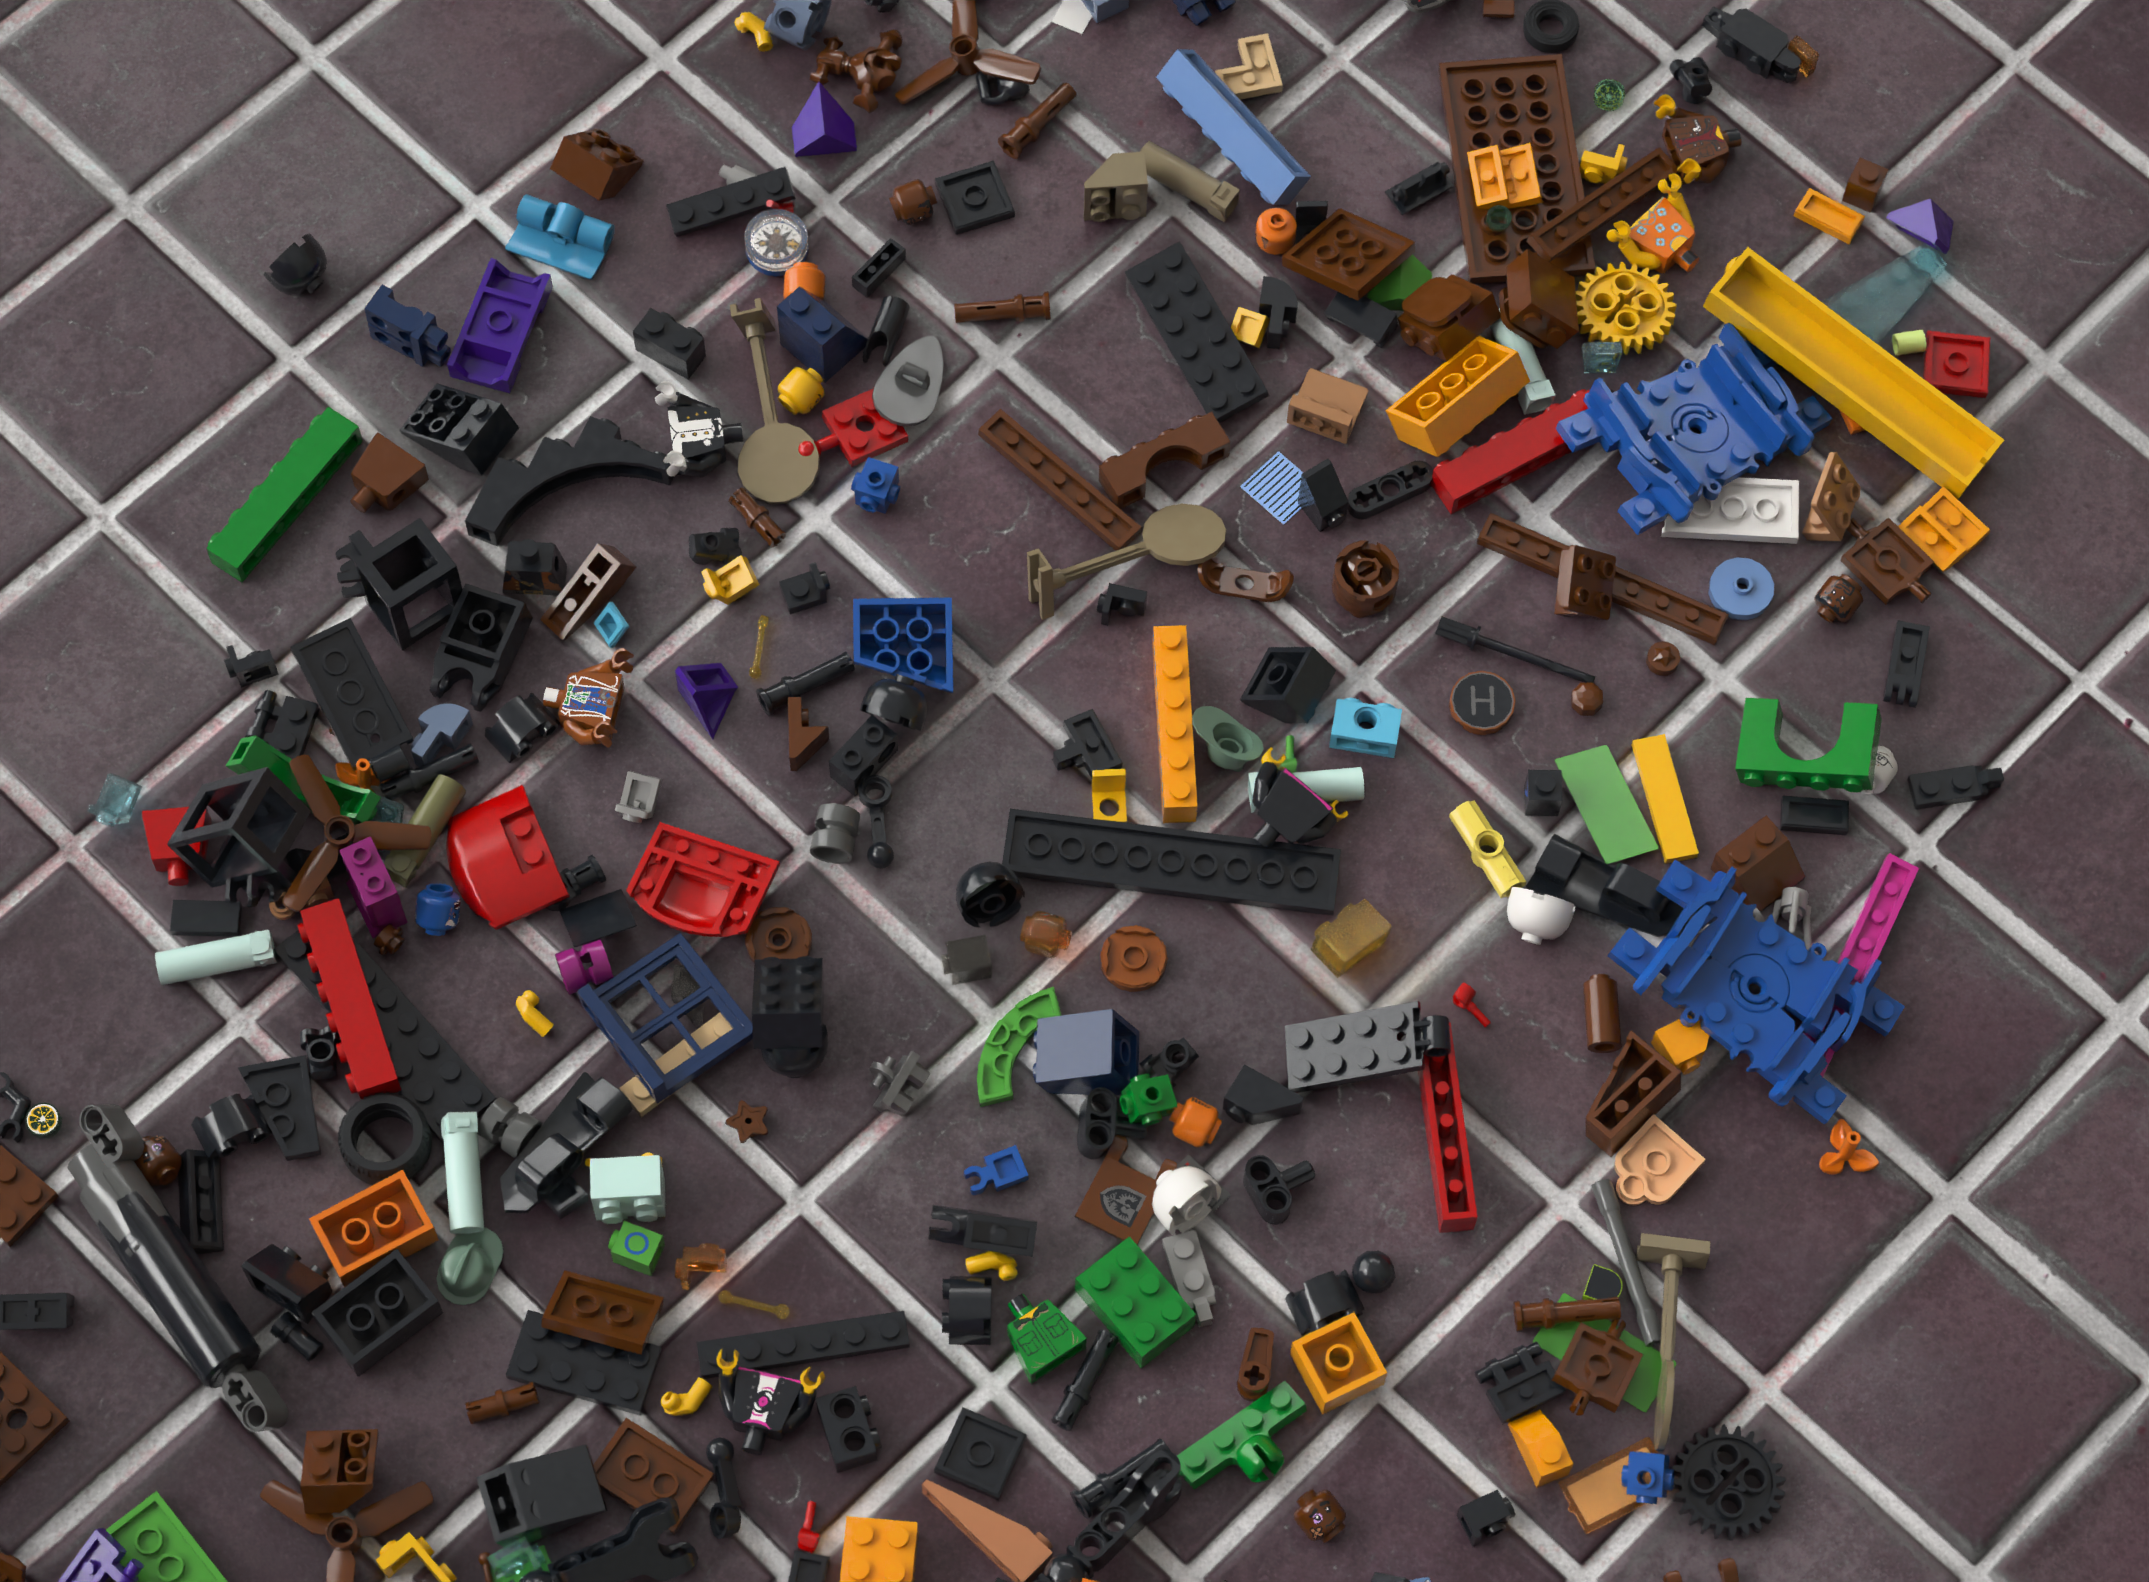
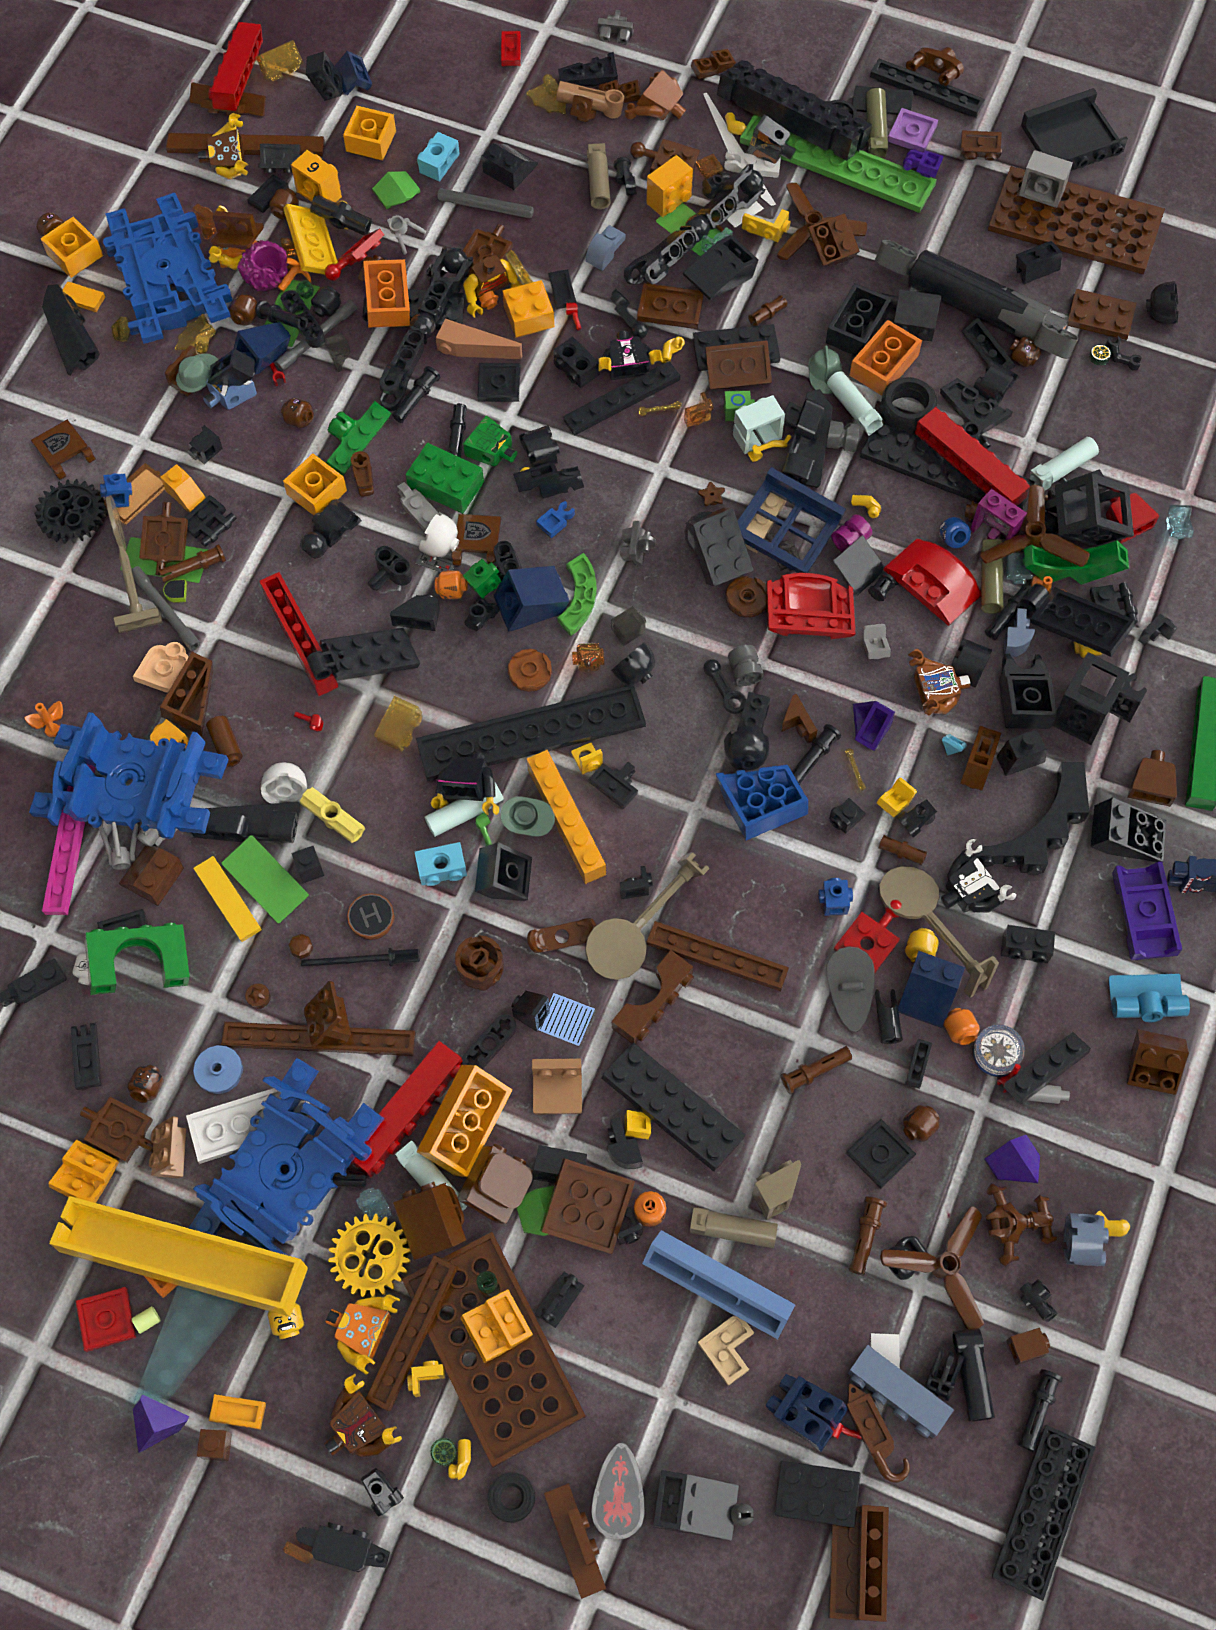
camera: 160 degrees right, 0 degrees up
(1591, 75) = (464, 1457): none -> yellow arm

